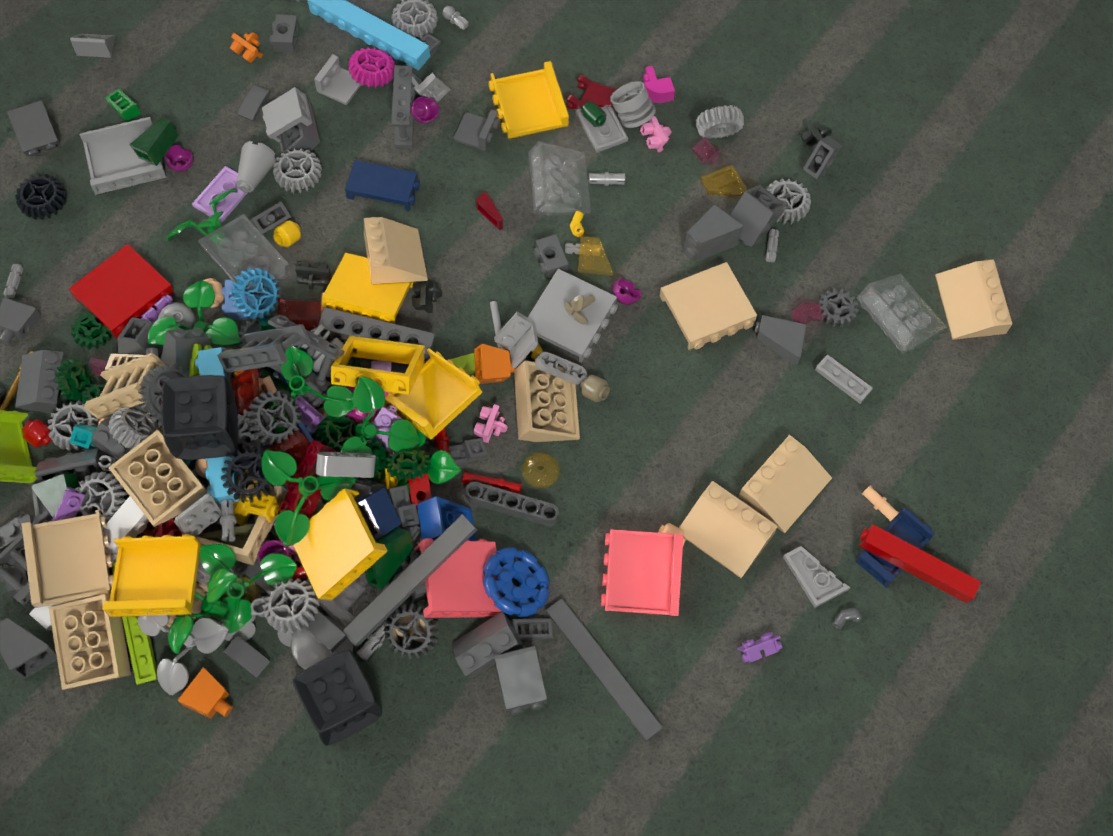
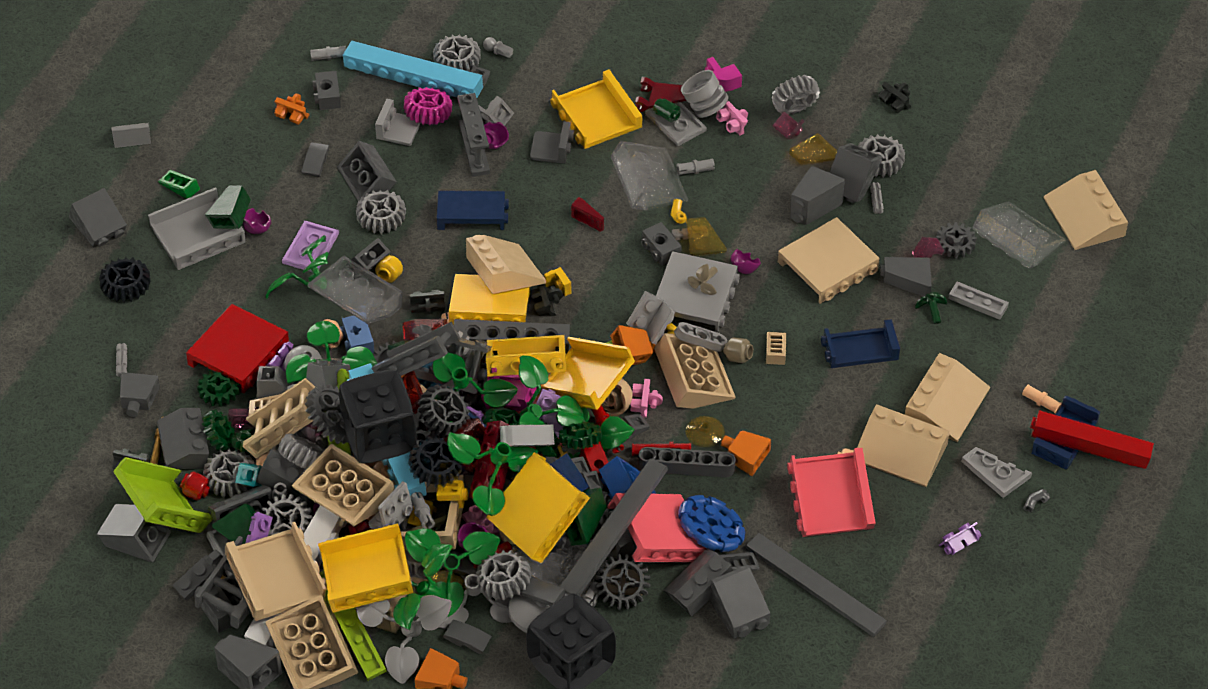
camera: 10 degrees left, 15 degrees down
(254, 165) = (337, 211): light grey cone -> none
(254, 310) = (380, 320): dark azure gear -> none
(285, 113) = (355, 160): light grey panel -> none
(443, 275) = (560, 280): none -> yellow bracket
(466, 420) = (619, 398): none -> tan cylinder
(496, 320) = (621, 308): light grey bar -> none
(574, 503) = (748, 450): none -> orange torso
(628, 403) = (776, 358): none -> tan slope
(715, 407) = (861, 346): none -> dark blue panel
(797, 370) = (932, 299): none -> dark green plant
(822, 157) = (905, 109): dark grey brick -> none

